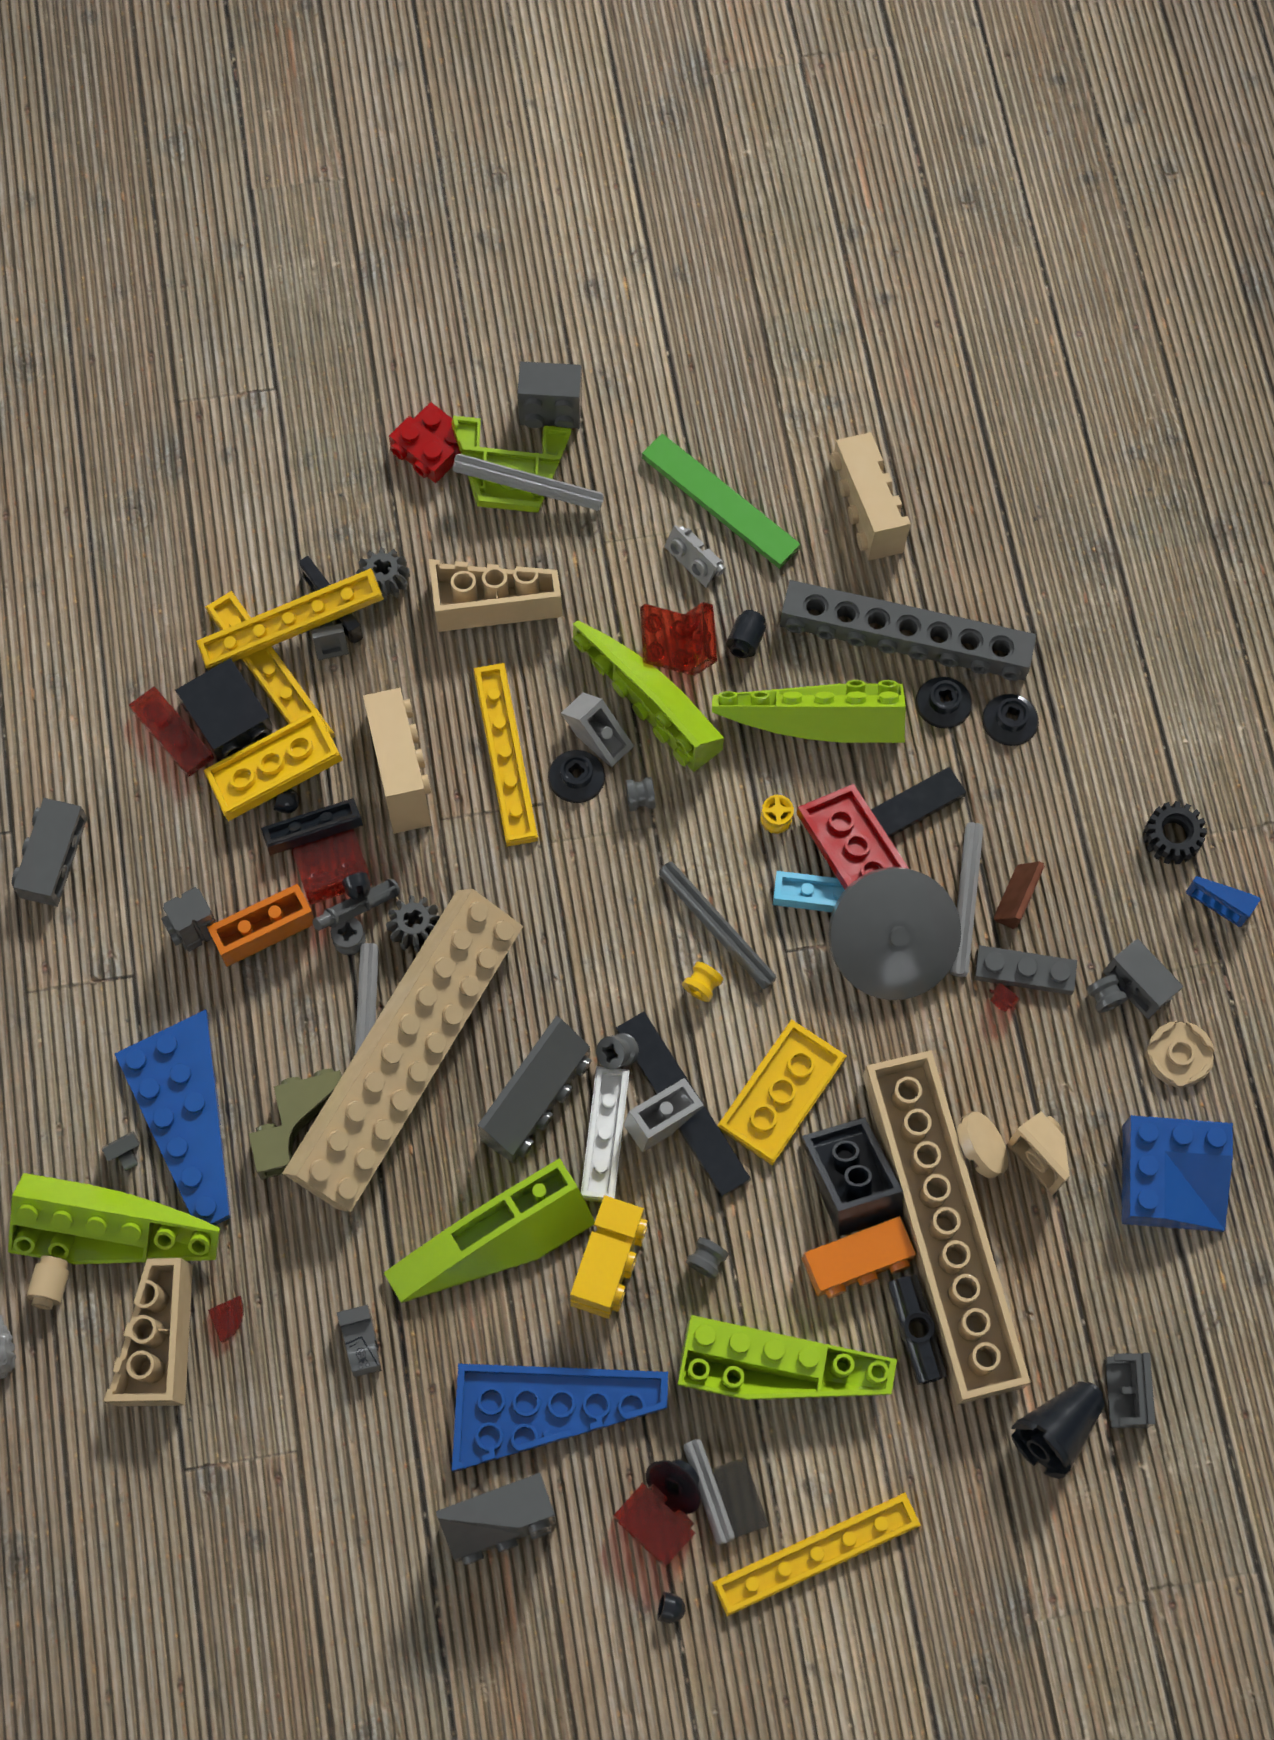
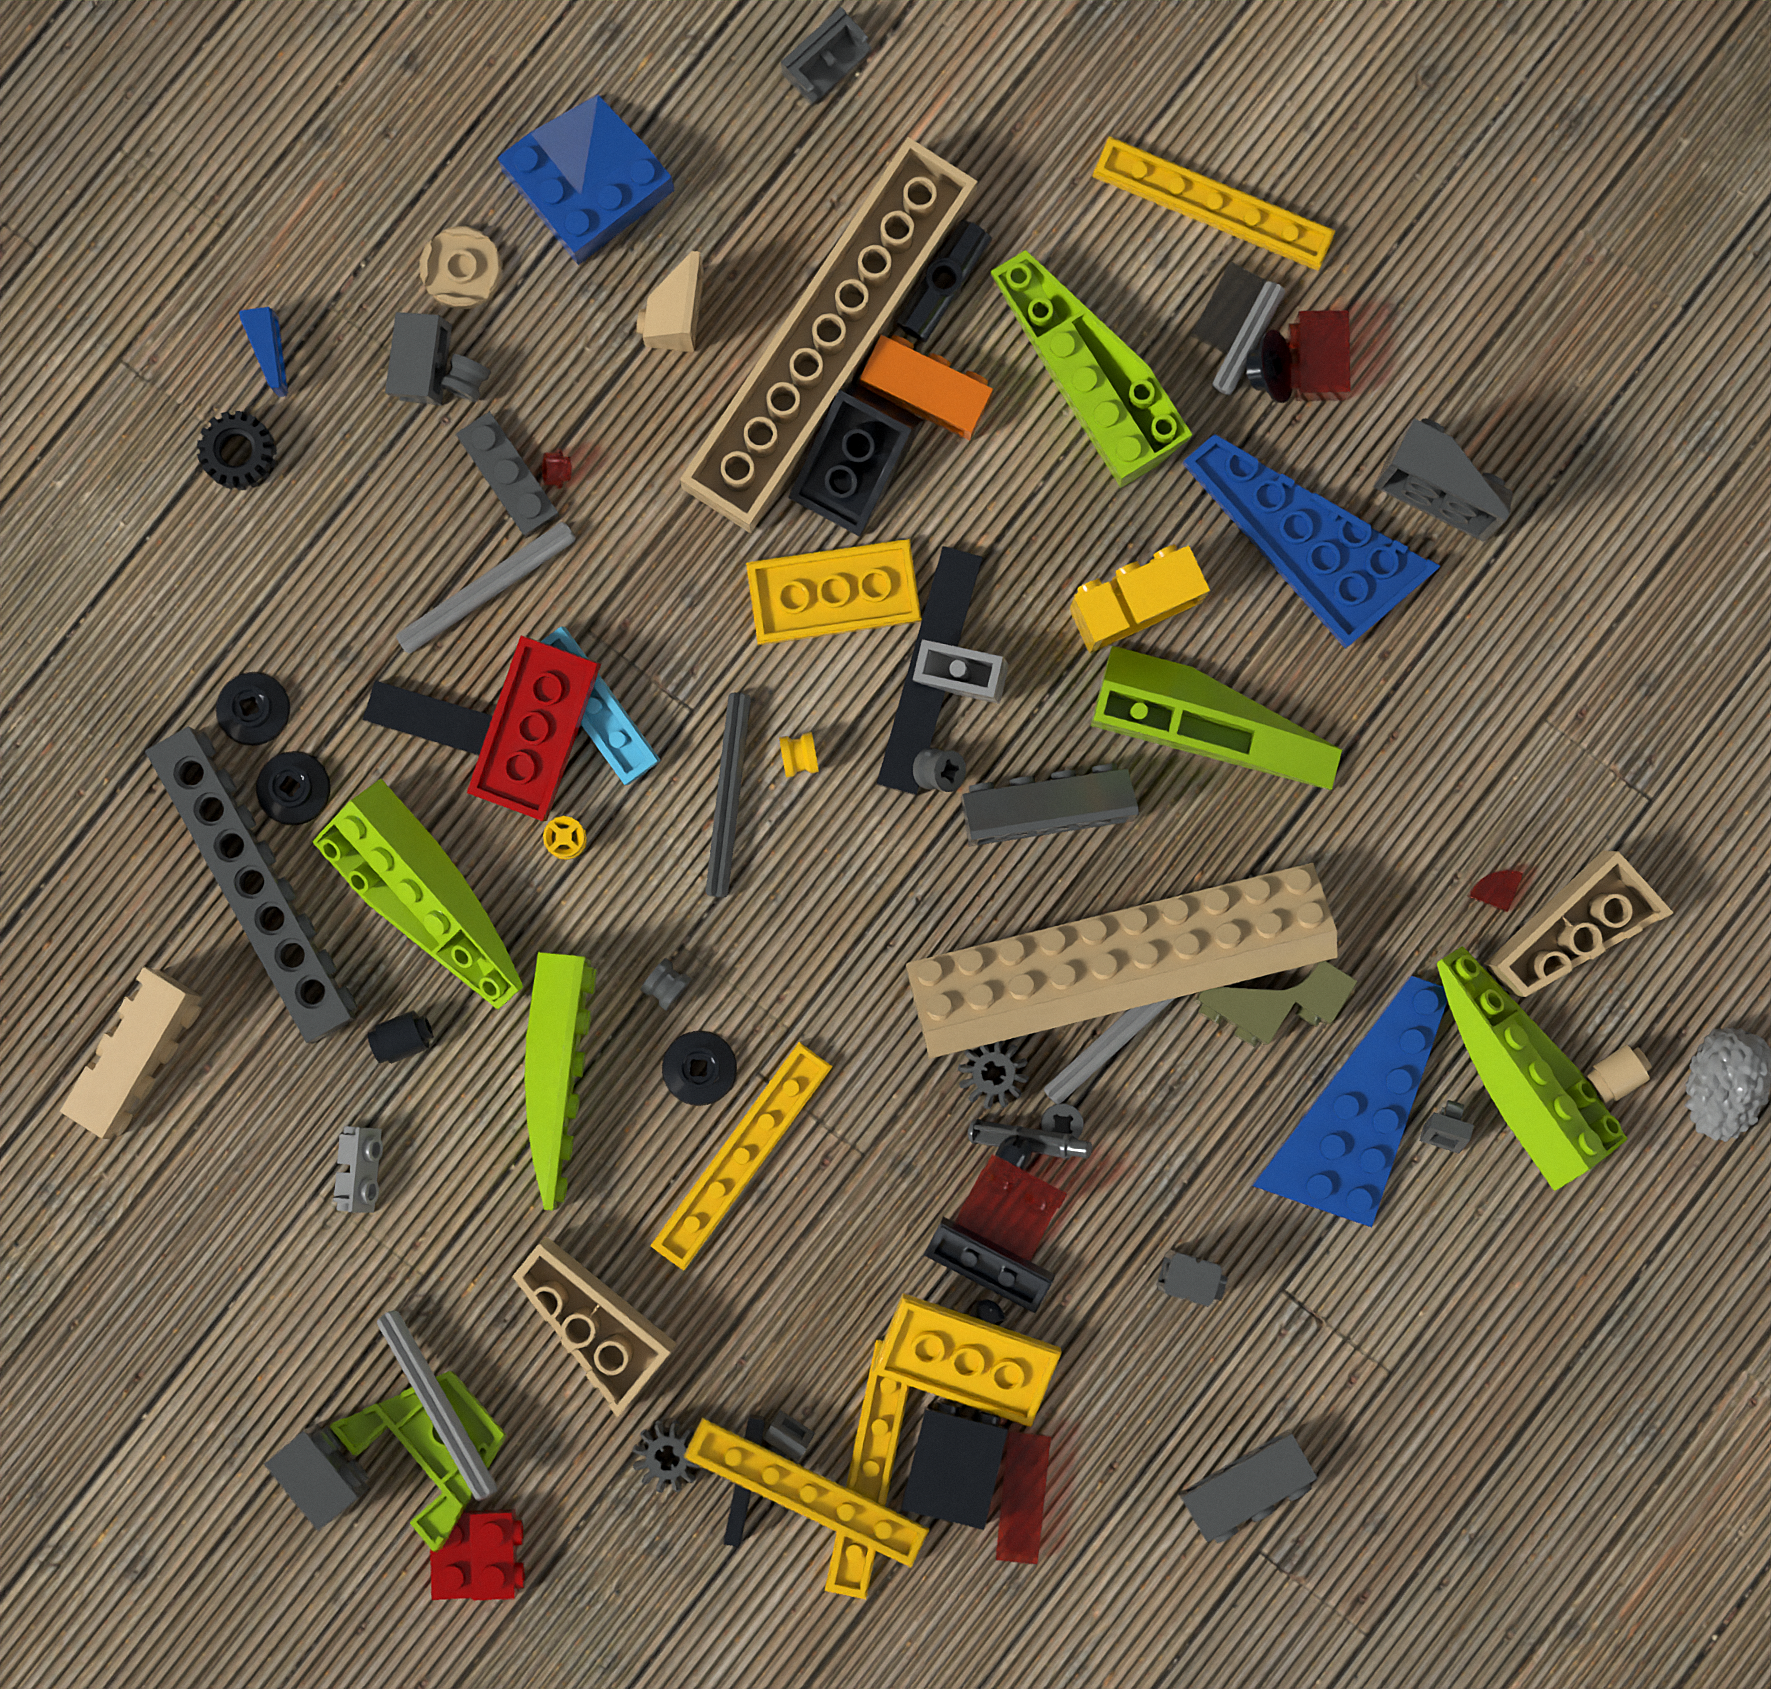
camera: 135 degrees left, 15 degrees up
(261, 925) = (1131, 1209): orange brick -> none
(360, 1340) = (1407, 752): dark grey leg -> none
(398, 760) = (847, 1250): tan wedge -> none
(597, 728) = (636, 1088): light grey slope -> none
(605, 1133) = (1024, 712): white tile -> none
(670, 1608) = (1374, 283): black hinge -> none
(677, 639) = (469, 1095): clear red bracket -> none
(707, 1257) = (1051, 518): dark grey wheel -> none
(721, 501) = (271, 1202): bright green tile -> none
(894, 933) = (591, 615): dark grey dish -> none
(983, 1144) = (722, 363): tan tile -> none
(1018, 894) = (436, 543): copper slope -> none
(1059, 1428) = (916, 85): black cone -> none

